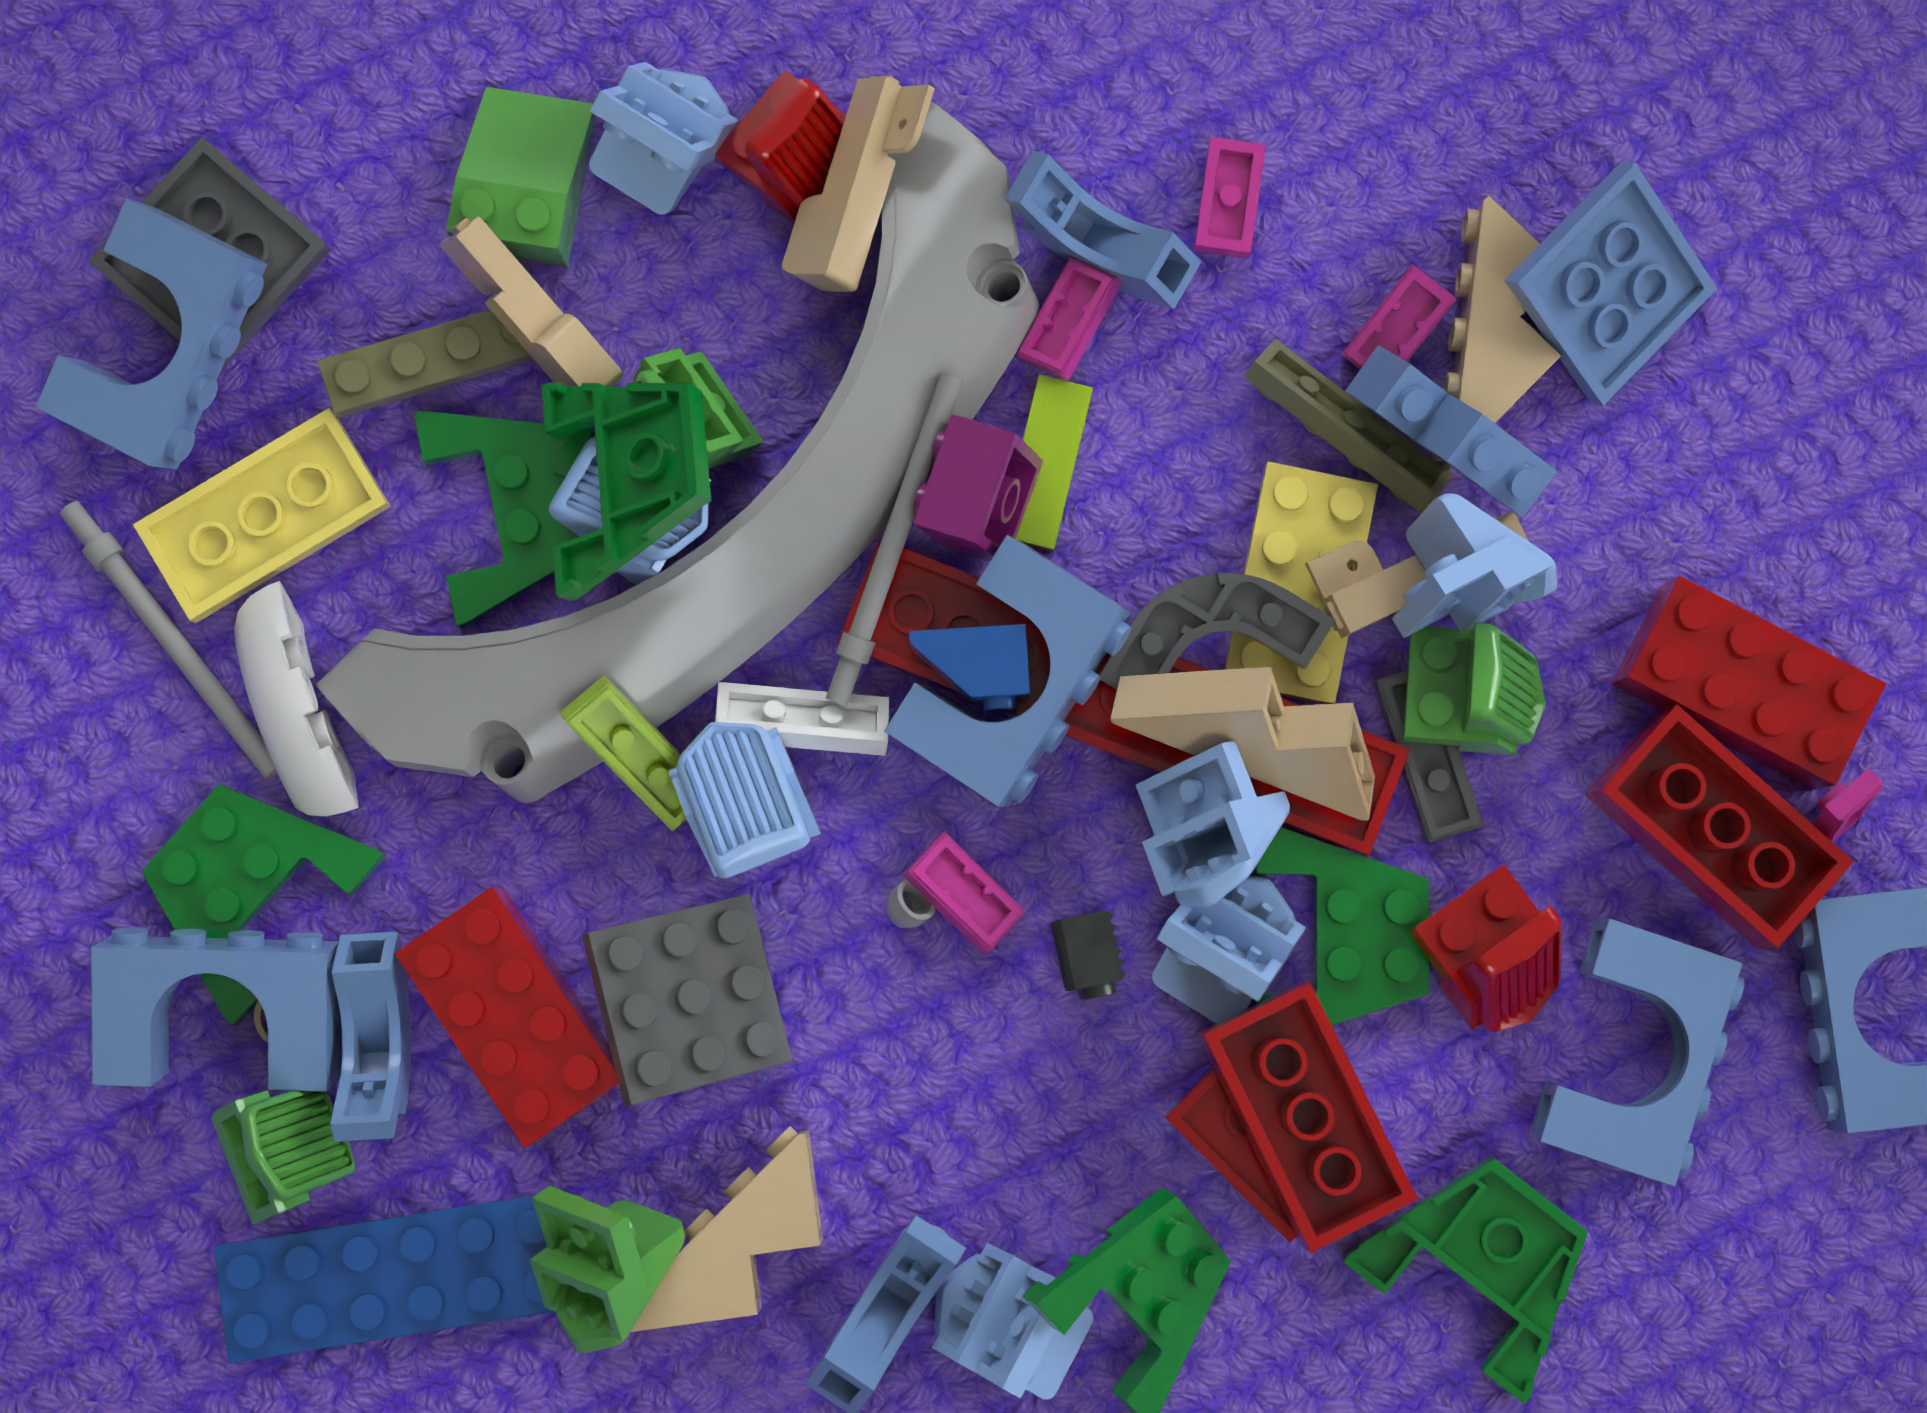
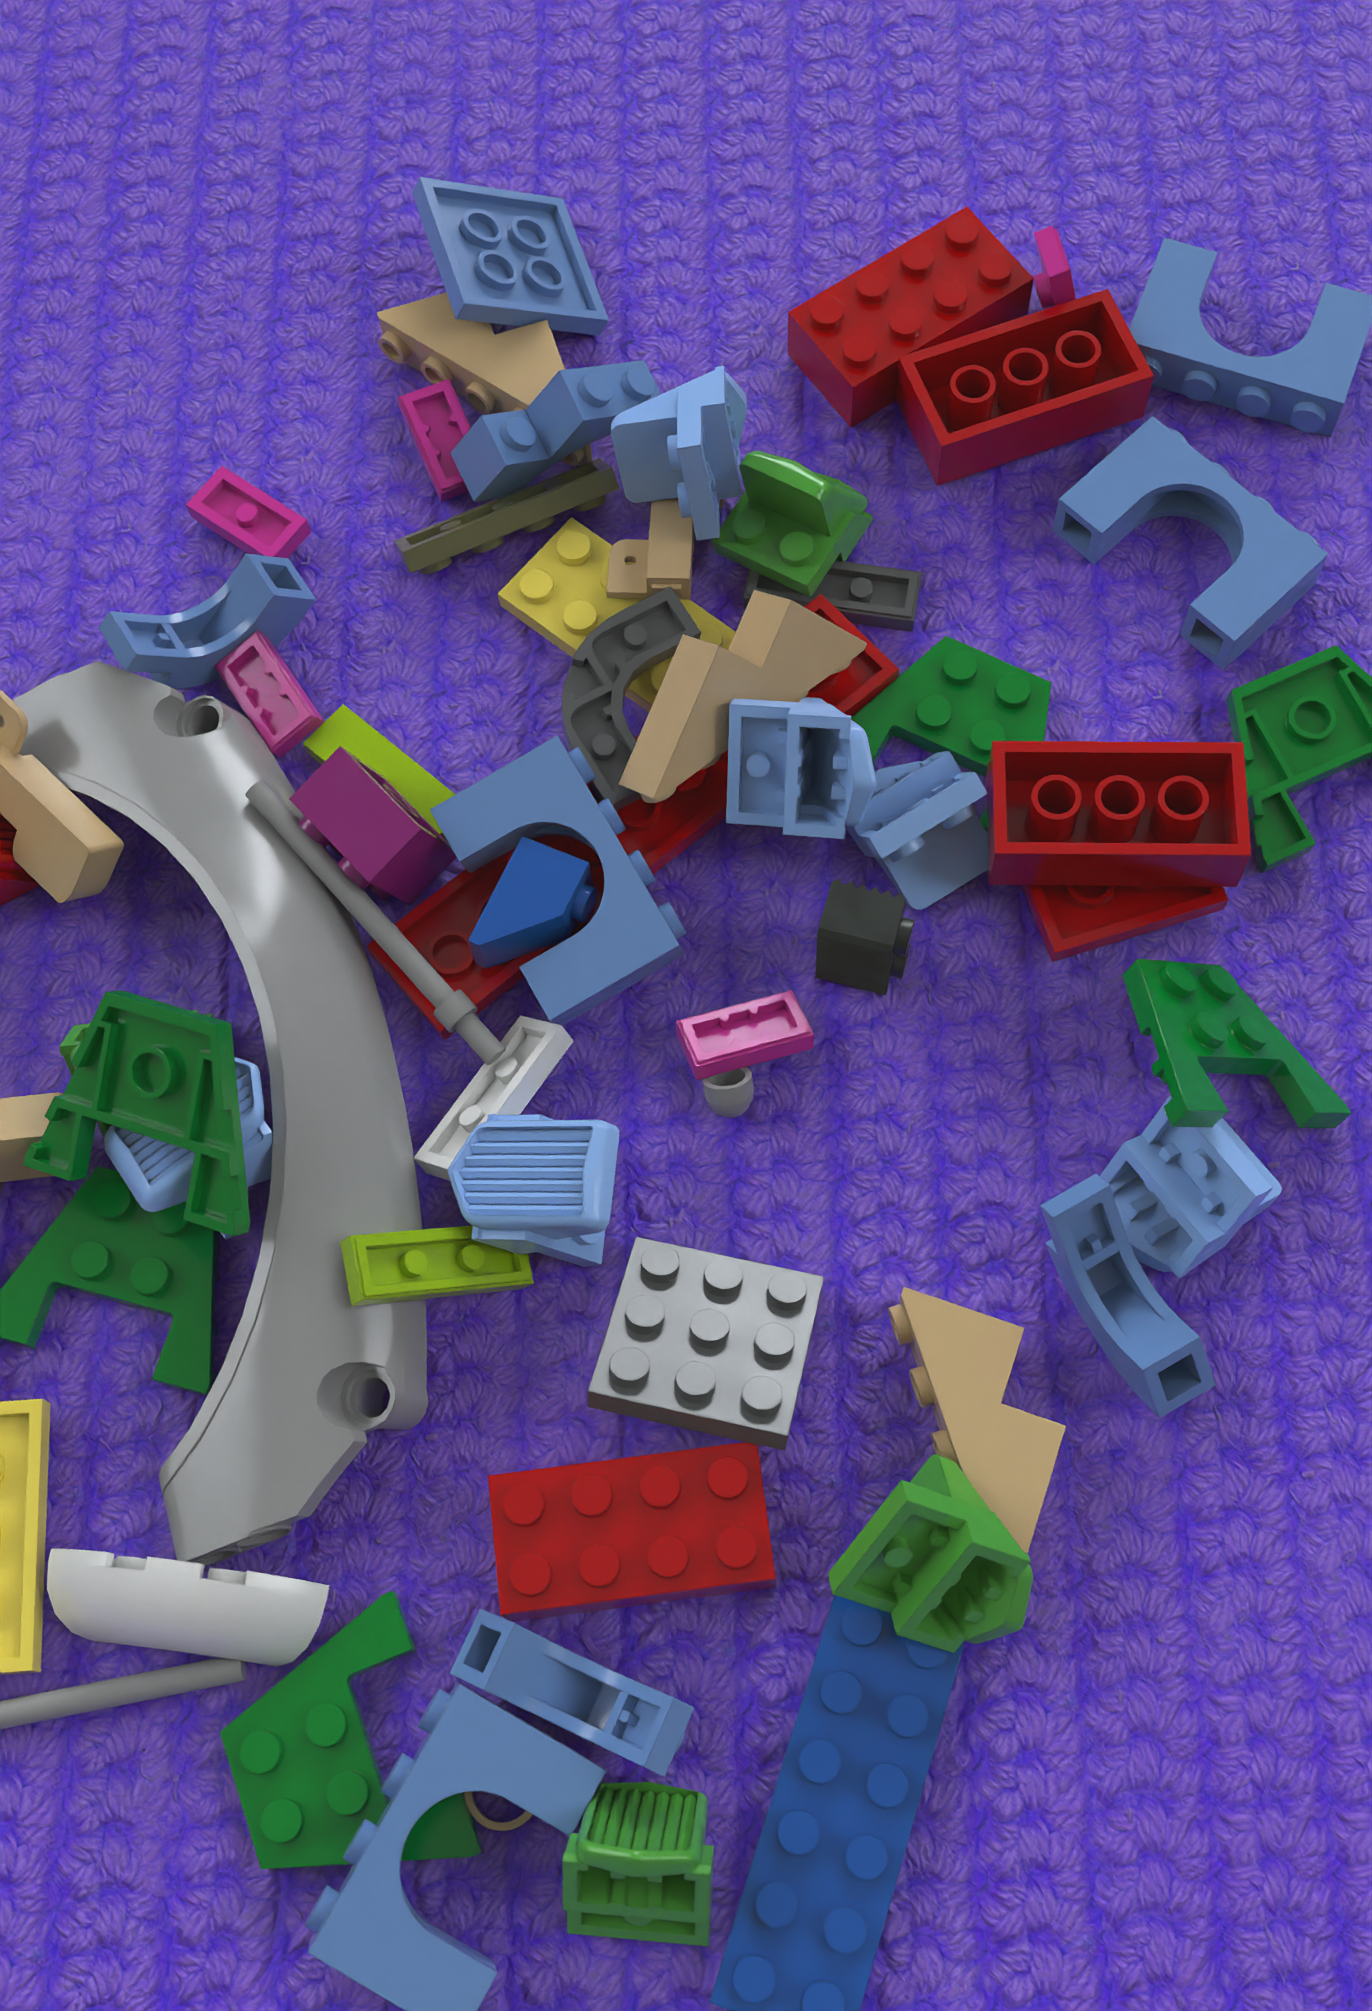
camera: 55 degrees left, 15 degrees down
(1494, 952) = (1041, 604): red piece -> none

